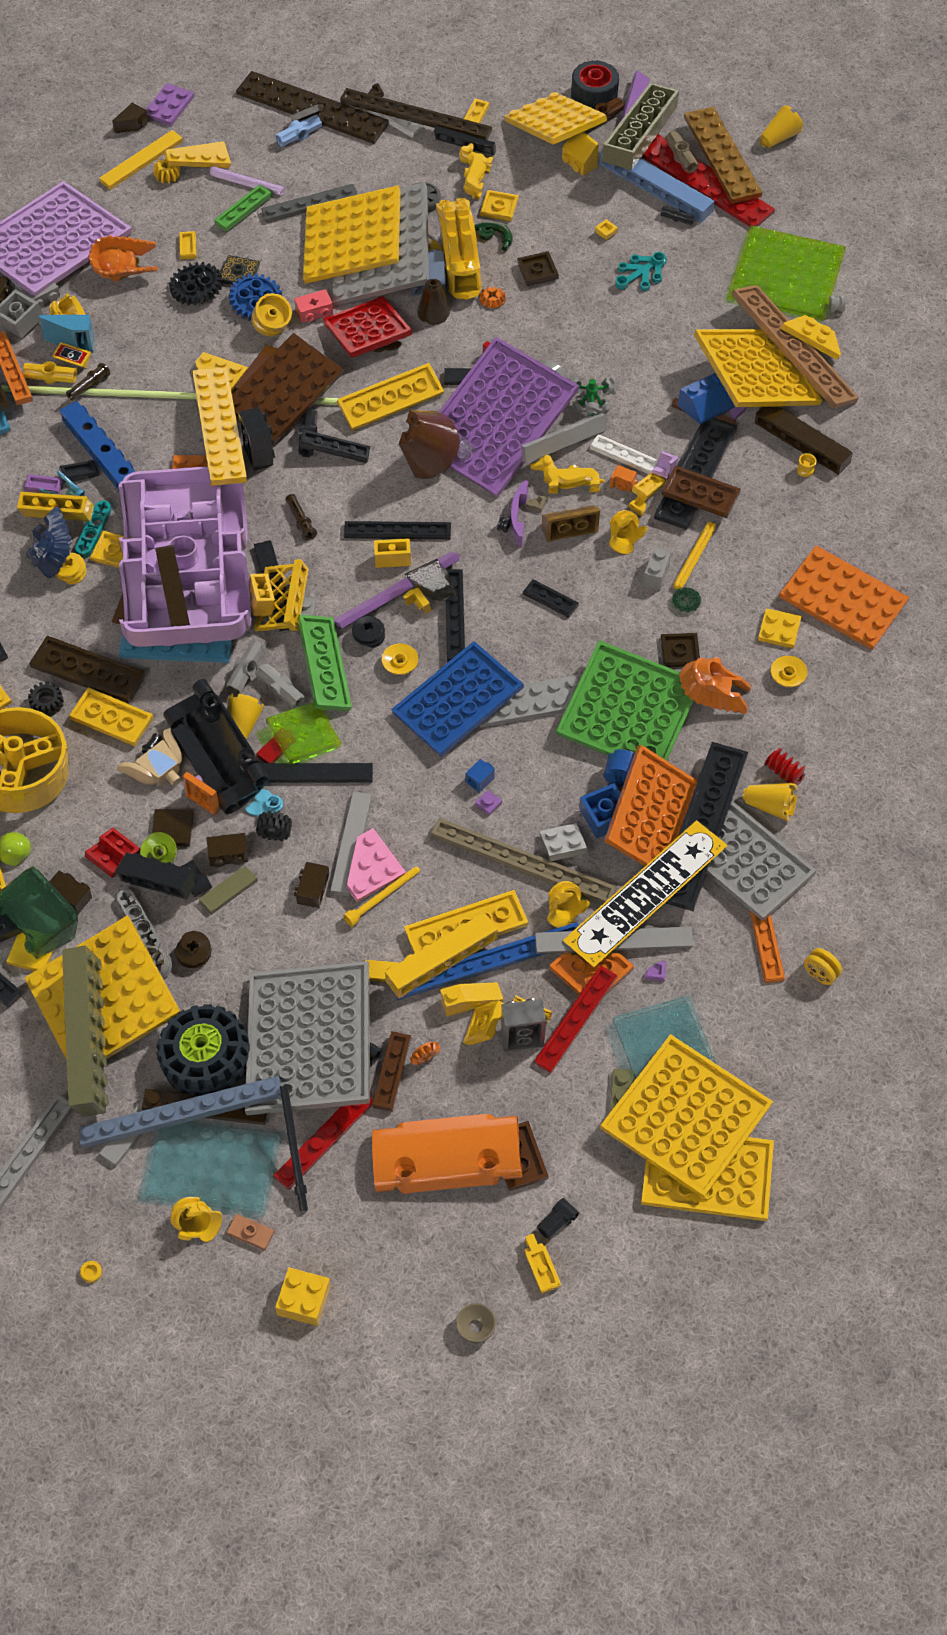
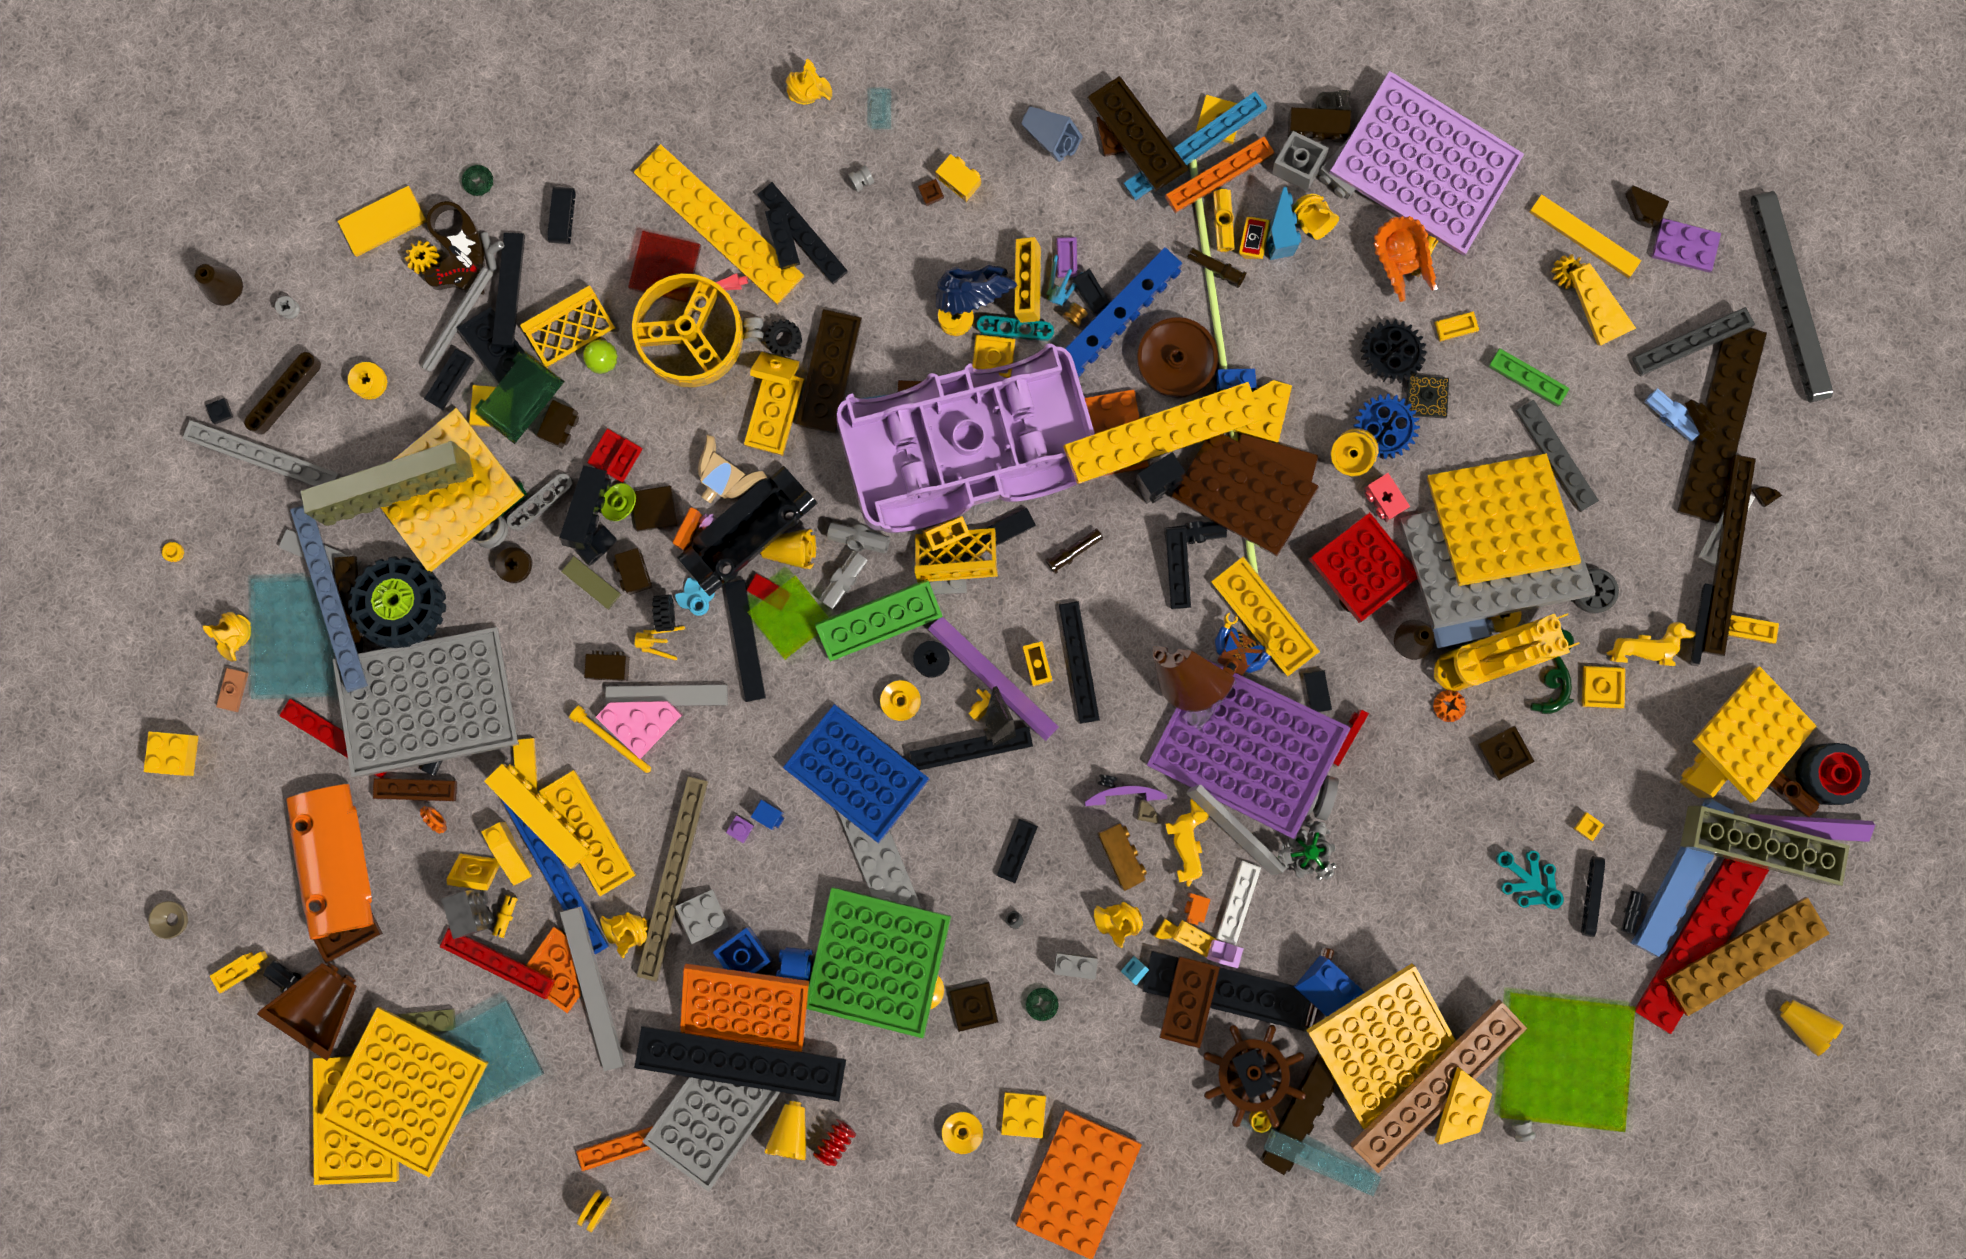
camera: 85 degrees right, 25 degrees up
(72, 704) = (774, 368): none -> yellow plate
(95, 483) = (1075, 314): none -> pearl gold wheel
(151, 743) = (745, 463): black pin -> none
(156, 418) = (1177, 357): none -> reddish brown dish
(172, 586) = (898, 441): dark brown beam -> none
(185, 387) = (1232, 377): none -> blue plate
(227, 52) = (1792, 296): none -> dark grey beam
(245, 110) = (1693, 341): none -> dark grey tile
(245, 180) = (1576, 371): lavender axle -> none
(295, 850) = (646, 640): none -> yellow plant
(300, 1189) = (278, 727): black bar -> none
(423, 403) = (1238, 651): none -> torso
(597, 1188) = (313, 1009): none -> reddish brown cone
(608, 604) = (1011, 916): none -> dark grey hinge
(644, 893) = (645, 1015): sticker -> none
(656, 972) = (569, 1037): medium lavender tile -> none
(661, 233) = (1593, 896): none -> black beam
(668, 529) = (1134, 970): none -> medium azure plate
(681, 151) = (1745, 896): dark tan piece -> none
(694, 555) = (1106, 1005): yellow axle -> none
(711, 684) = (921, 1048): orange piece -> none
(767, 454) = (1253, 1076): none -> reddish brown brick
(845, 427) = (1322, 1162): none -> clear light blue tile

